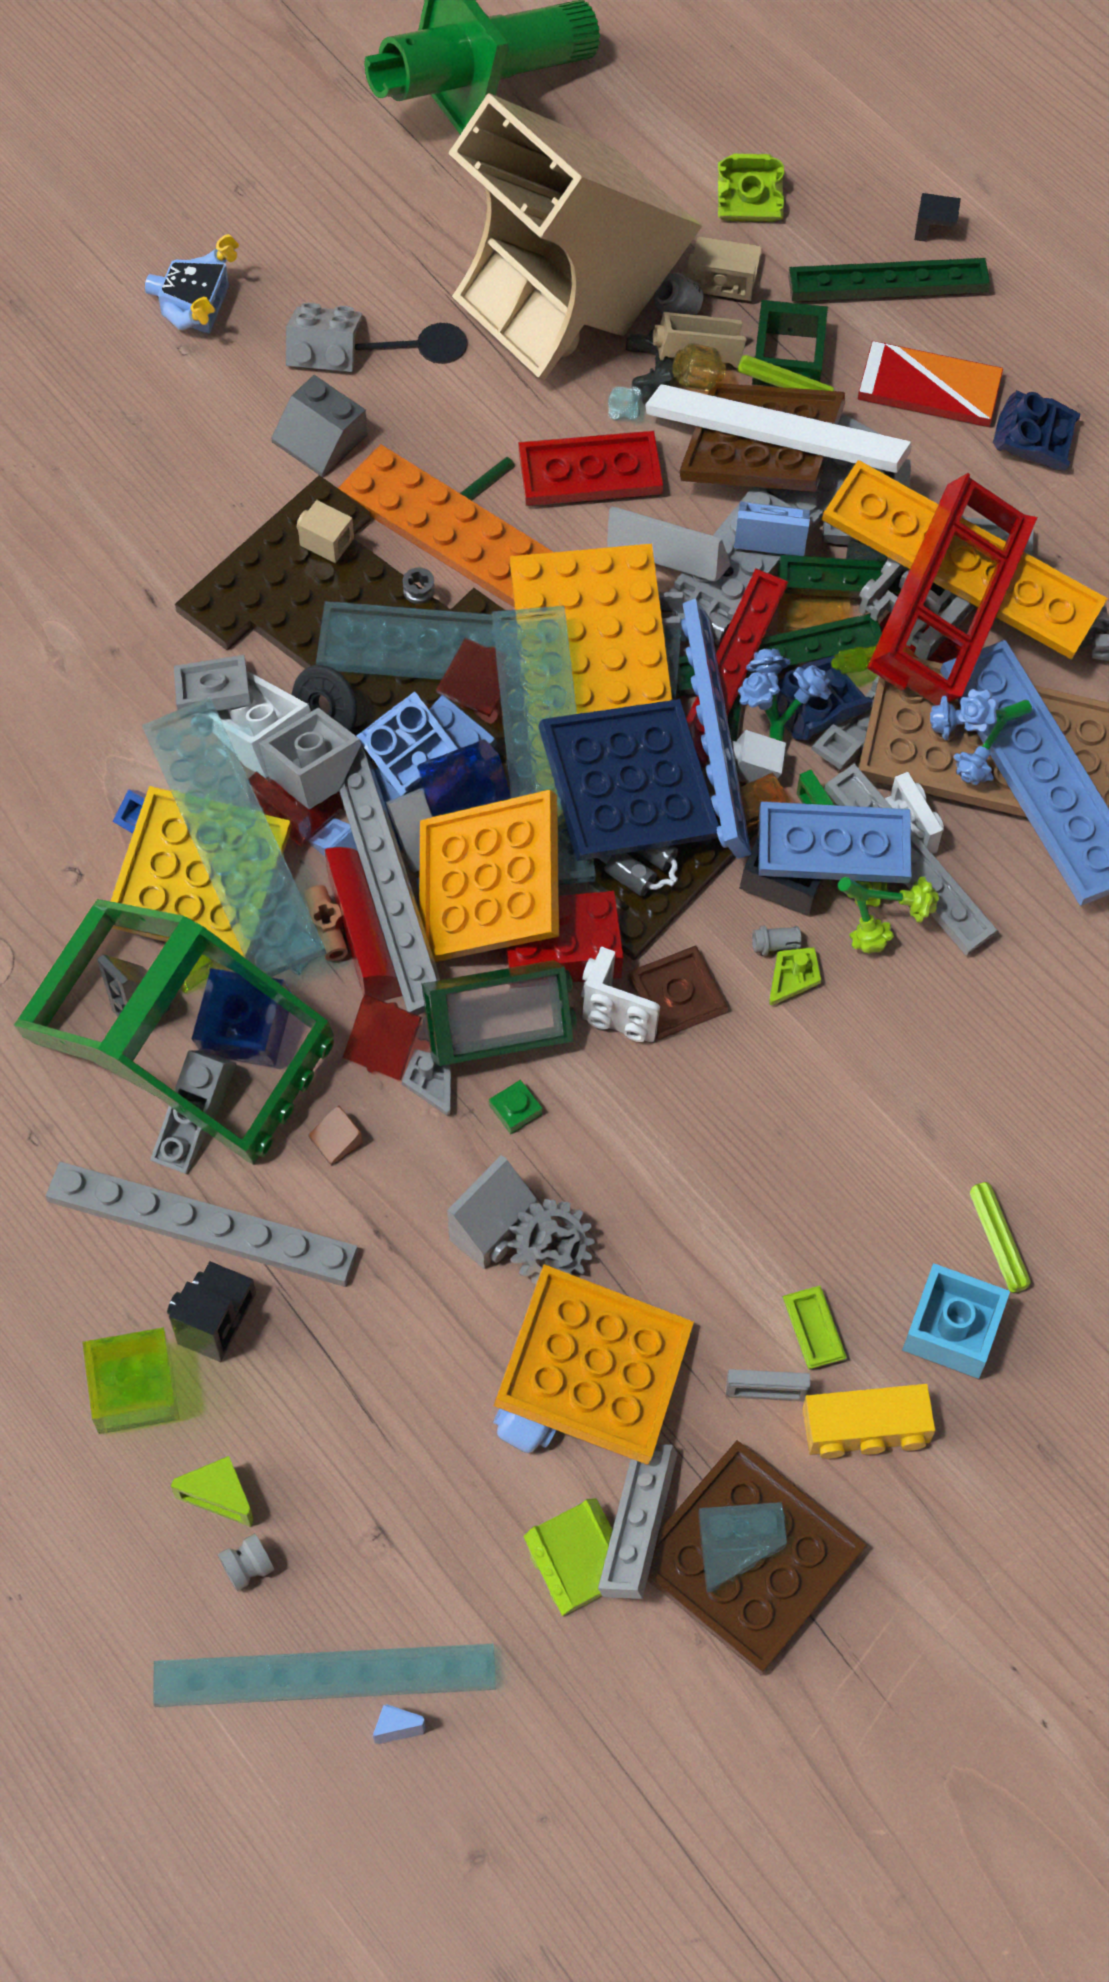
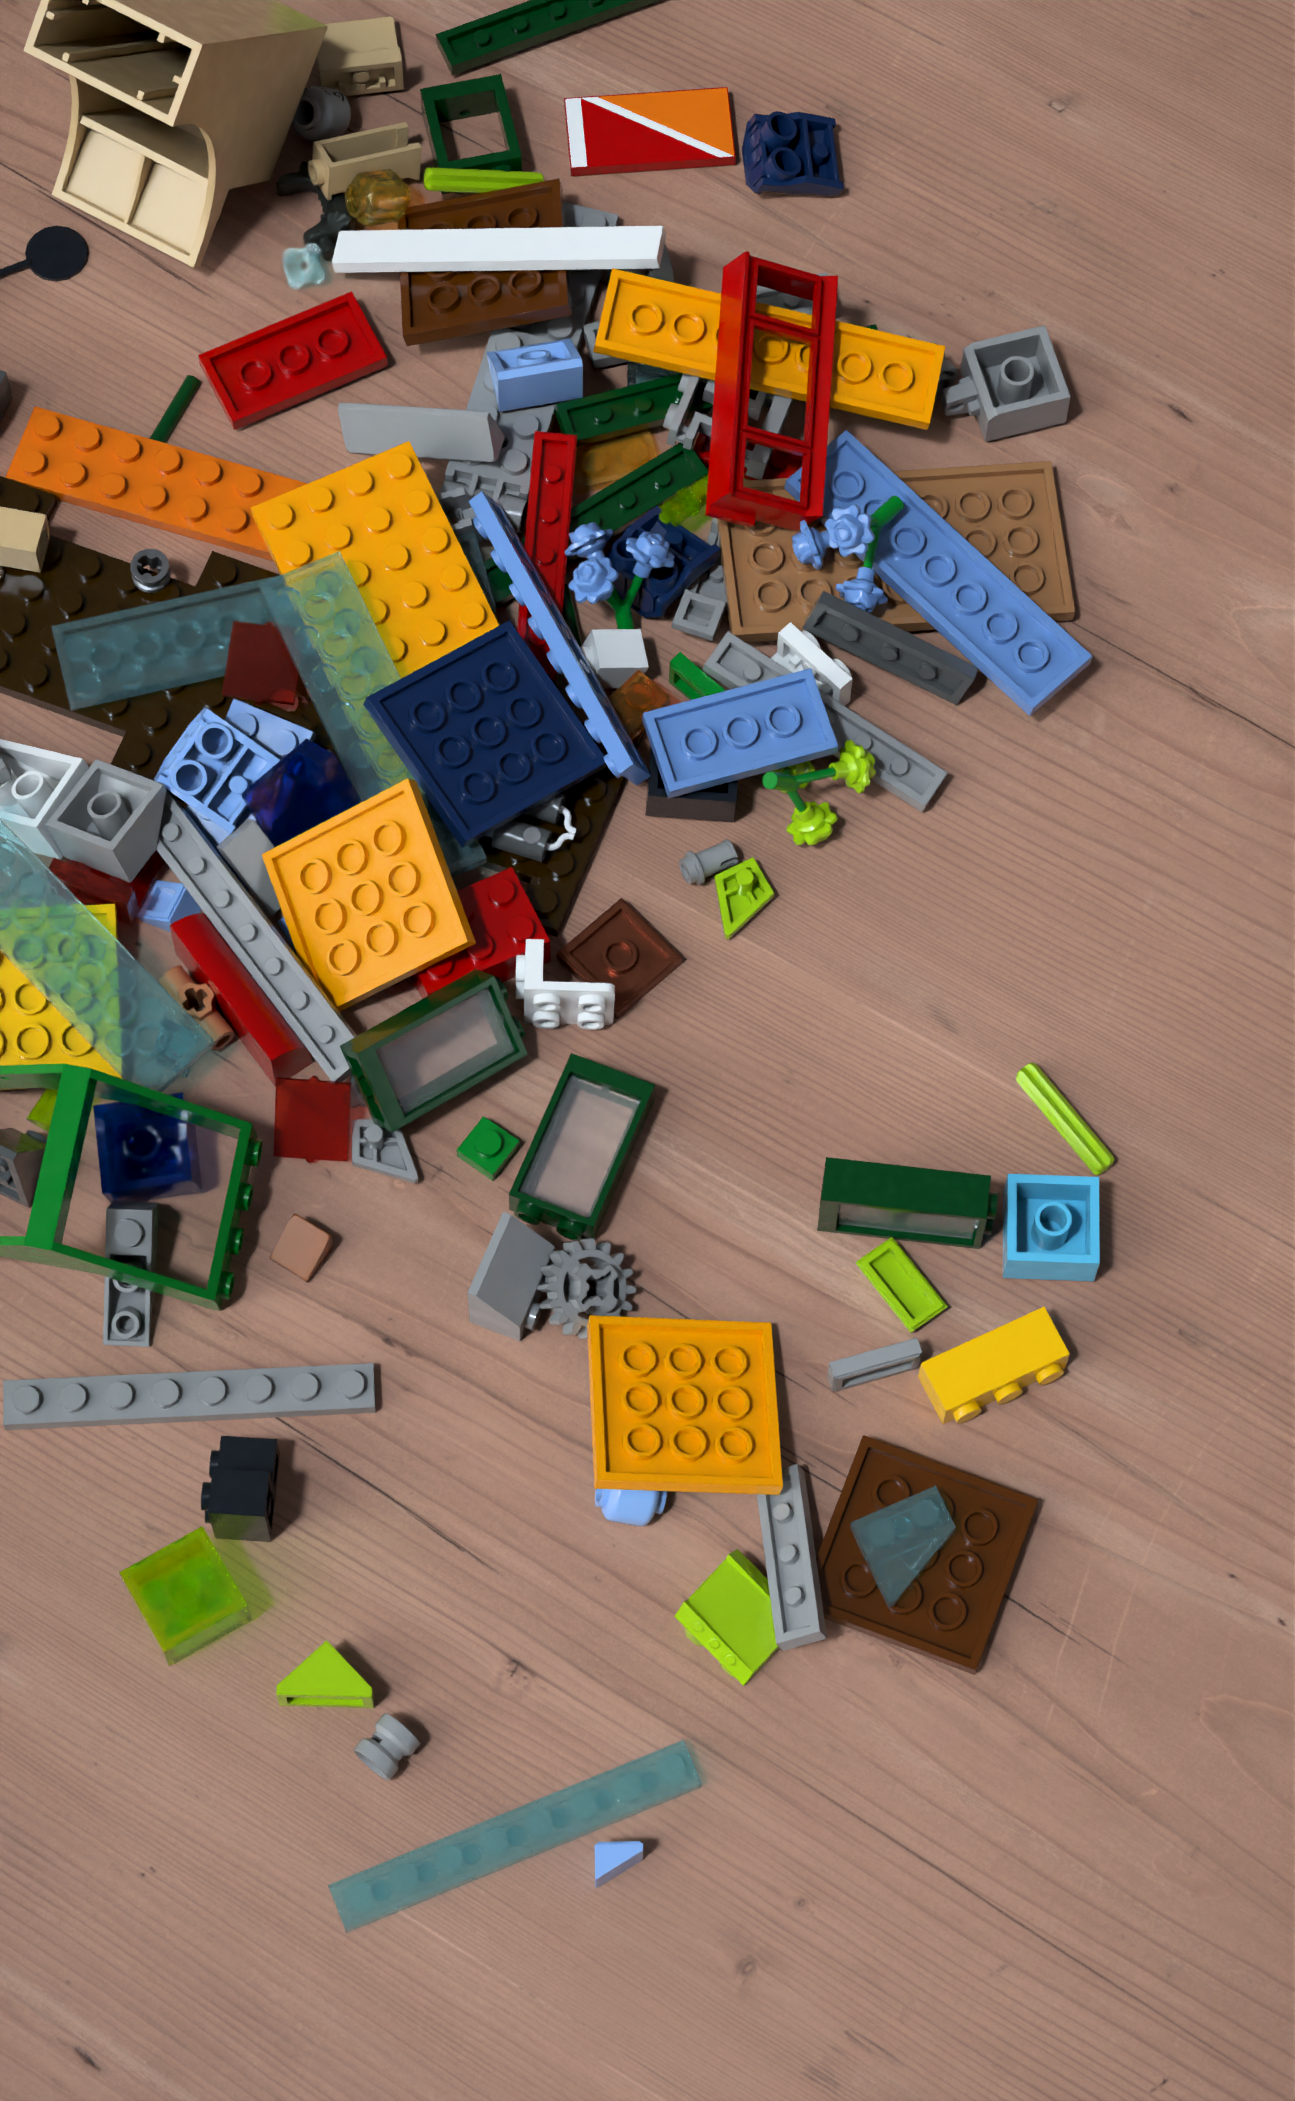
camera: 20 degrees left, 5 degrees up
(334, 687) = (99, 726): black wheel -> none
(589, 1130) = (581, 1148): none -> window
(839, 1260) = (906, 1203): none -> dark green window
(983, 817) = (890, 647): none -> dark grey plate

